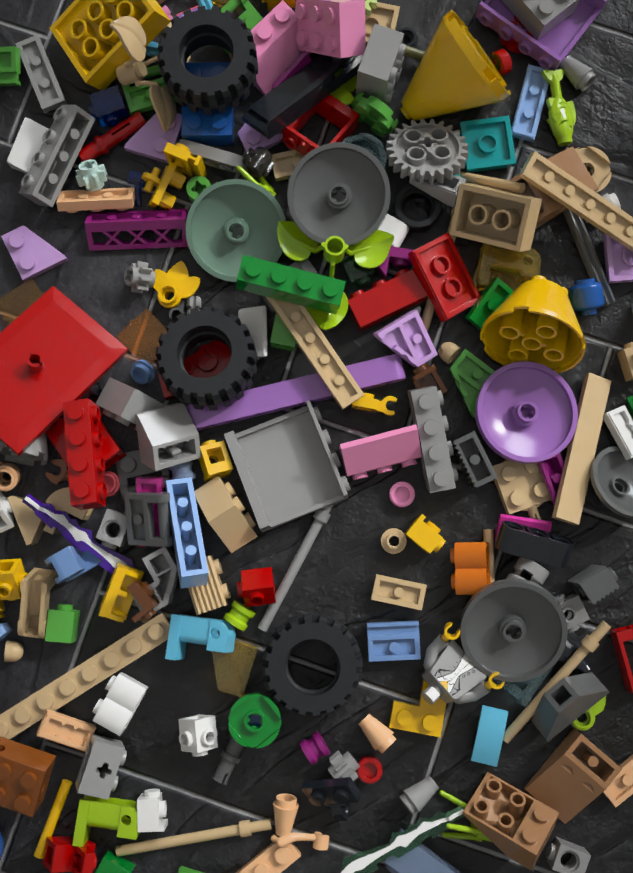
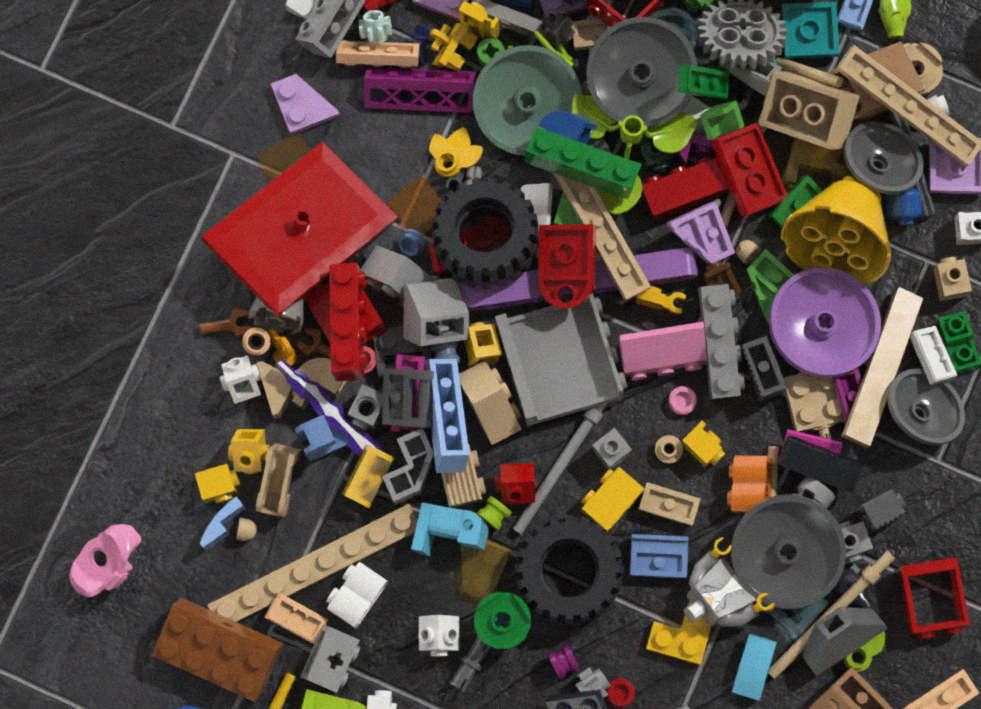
camera: 10 degrees right, 5 degrees down
(34, 486) = (283, 347): none -> light orange piece
(62, 624) = (302, 504): bright green brick -> none
(139, 277) = (418, 141): light grey gear -> none
(144, 595) = (397, 474): reddish brown bracket -> none
(276, 251) = (569, 125): none -> blue brick
(284, 377) = (566, 260): none -> red tile
(341, 547) = (611, 449): none -> light grey brick
(345, 593) = (611, 499): none -> yellow brick
(377, 733) = (632, 653): light nougat cone -> none
(396, 198) = (703, 81): none -> green tile
(416, 232) = (722, 119): none -> bright green panel
(566, 255) = (883, 157): none -> dark grey dish

